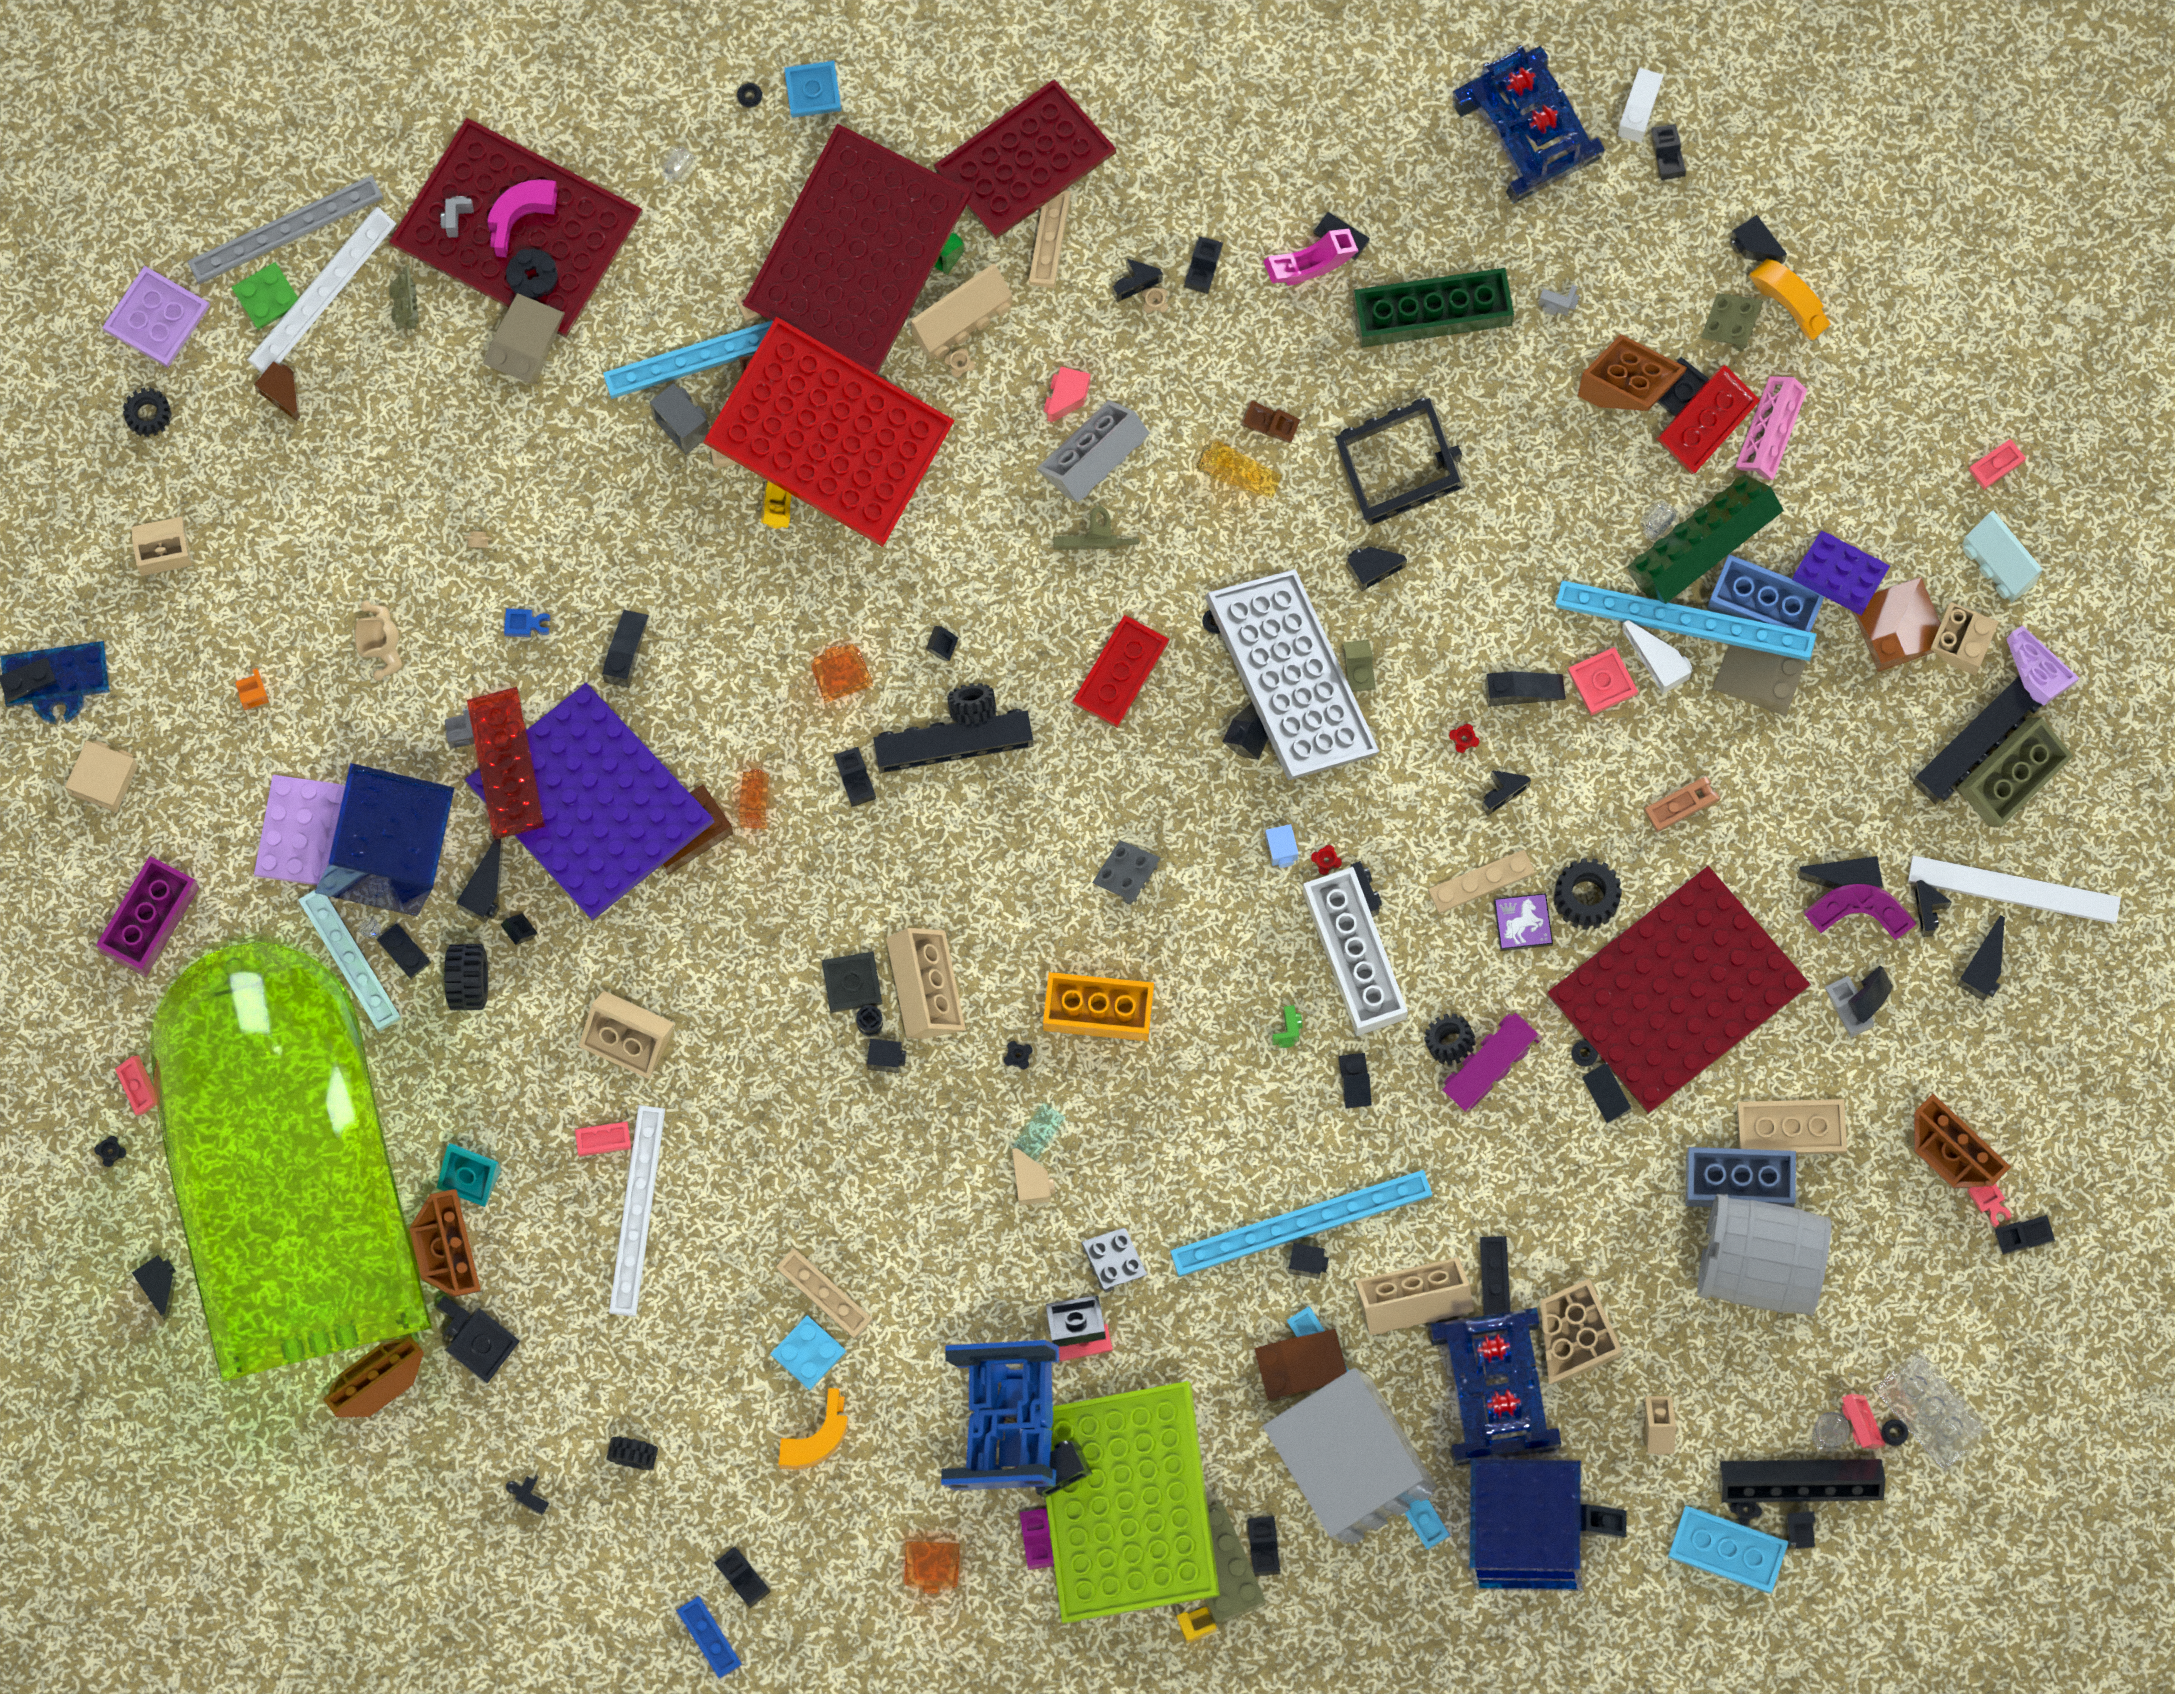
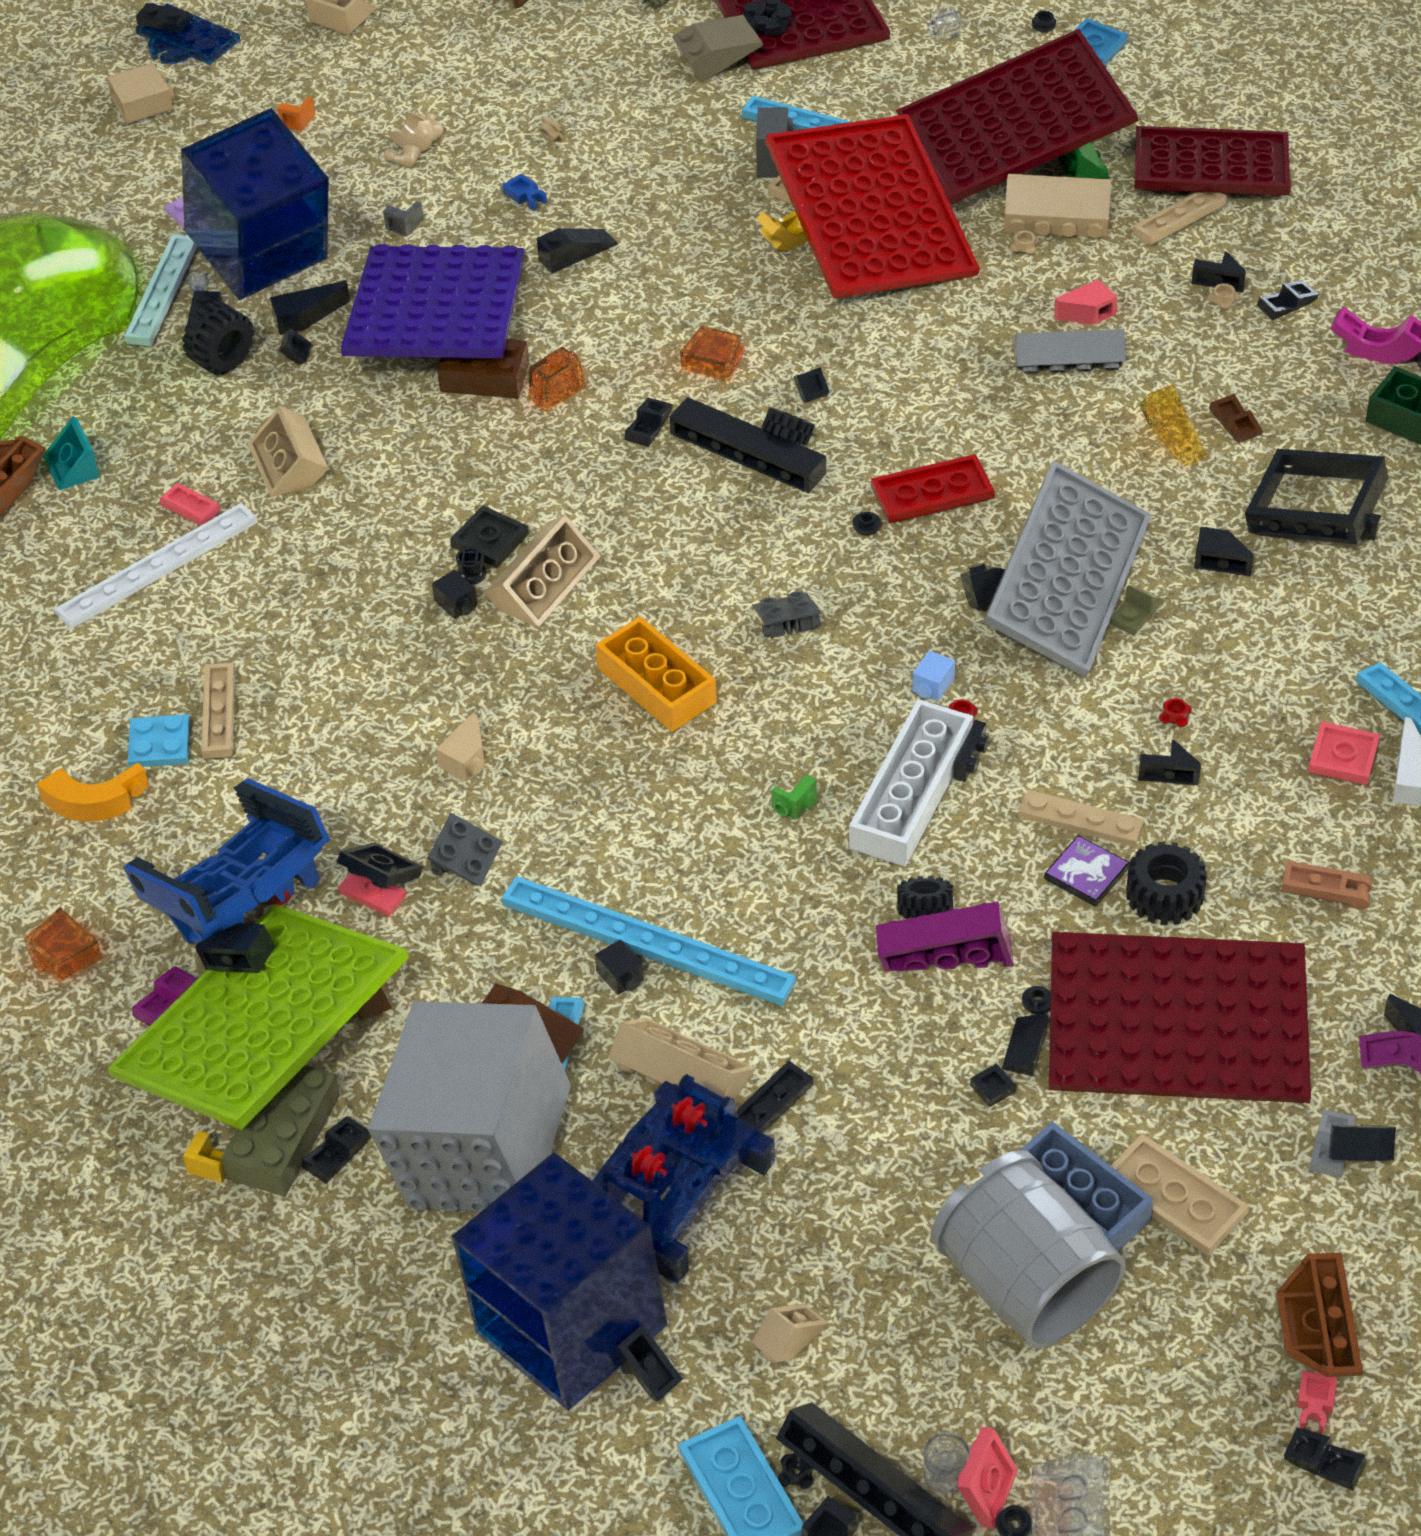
camera: 45 degrees right, 25 degrees down
(147, 916) = (65, 177): magenta brick -> none
(506, 763) = (404, 244): clear red plate -> none
(1022, 1061) = (557, 673): black plate -> none
(1039, 1131) = (513, 729): clear light blue tile -> none
(1096, 538) = (1007, 394): olive piece -> none
(1104, 749) = (866, 523): none -> black plate
(1355, 1080) = (810, 876): black slope -> none
(1523, 688) = (1264, 709): black slope -> none
(1576, 1333) = (792, 1195): tan wedge -> none
(1616, 1143) = (992, 1085): none -> black plate

